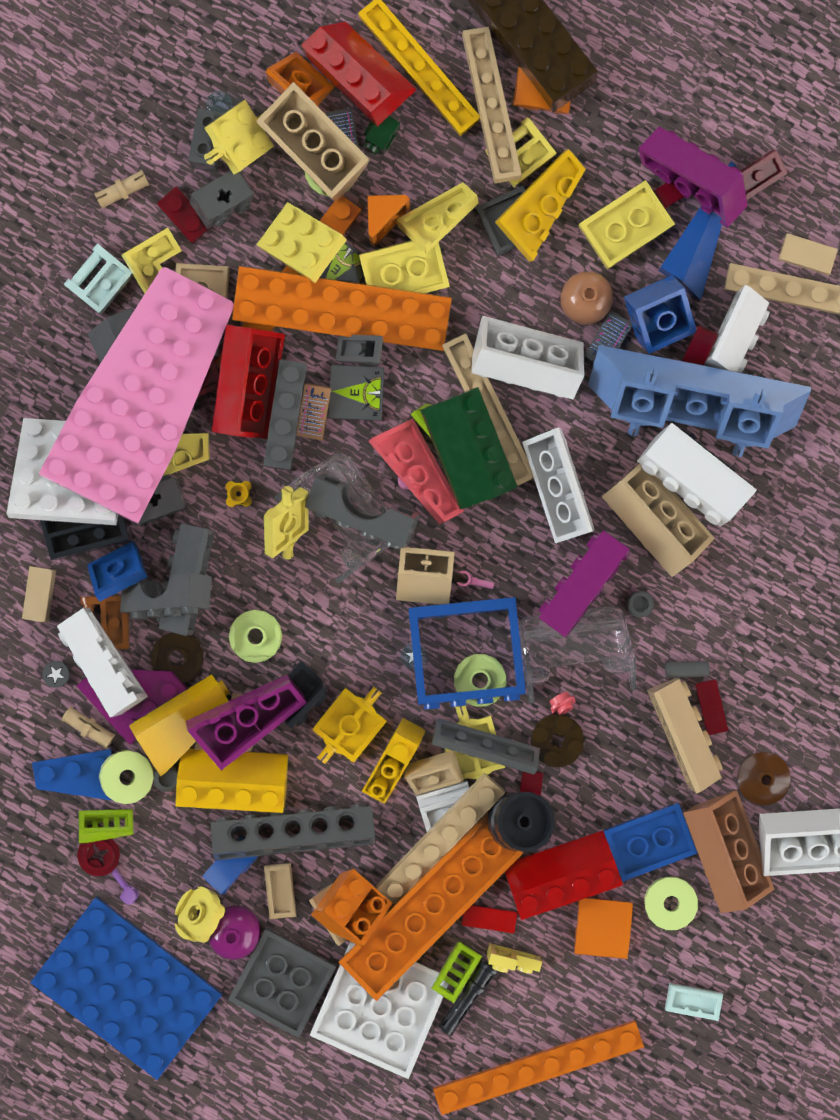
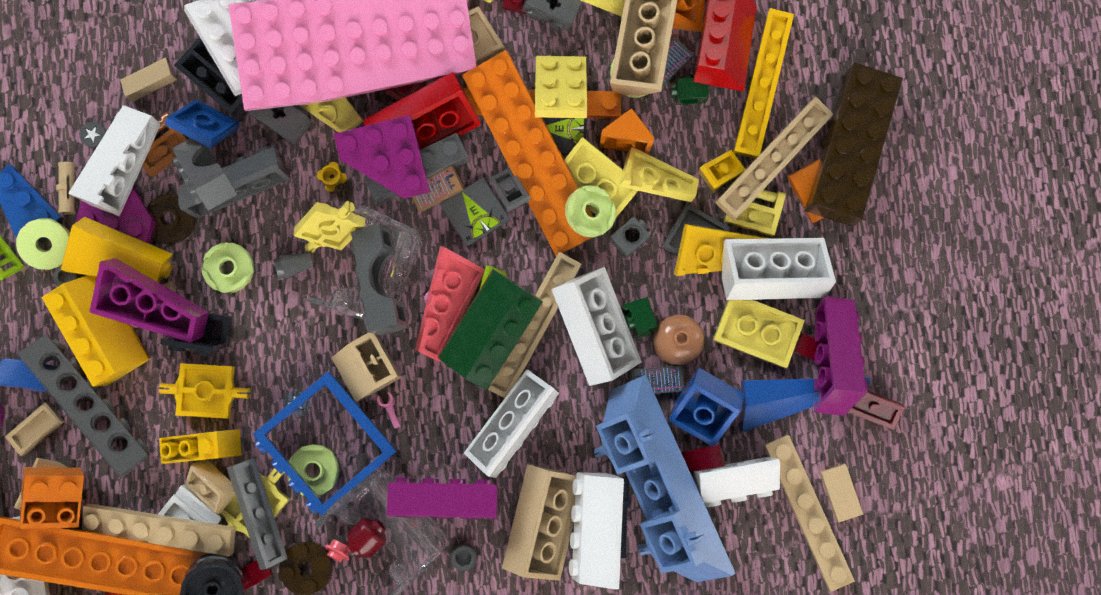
camera: 50 degrees right, 5 degrees down
(261, 430) = (387, 155): none -> magenta plate
(292, 579) = (292, 264): none -> dark grey cone
(428, 307) = (578, 218): none -> yellowish green tile
(467, 286) = (625, 247): none -> dark grey brick
(470, 157) = (721, 170): none -> yellow slope
(546, 316) = (640, 317): none -> dark green brick
(568, 671) = (366, 537): none -> dark red head
(586, 172) = (776, 268): none -> white slope

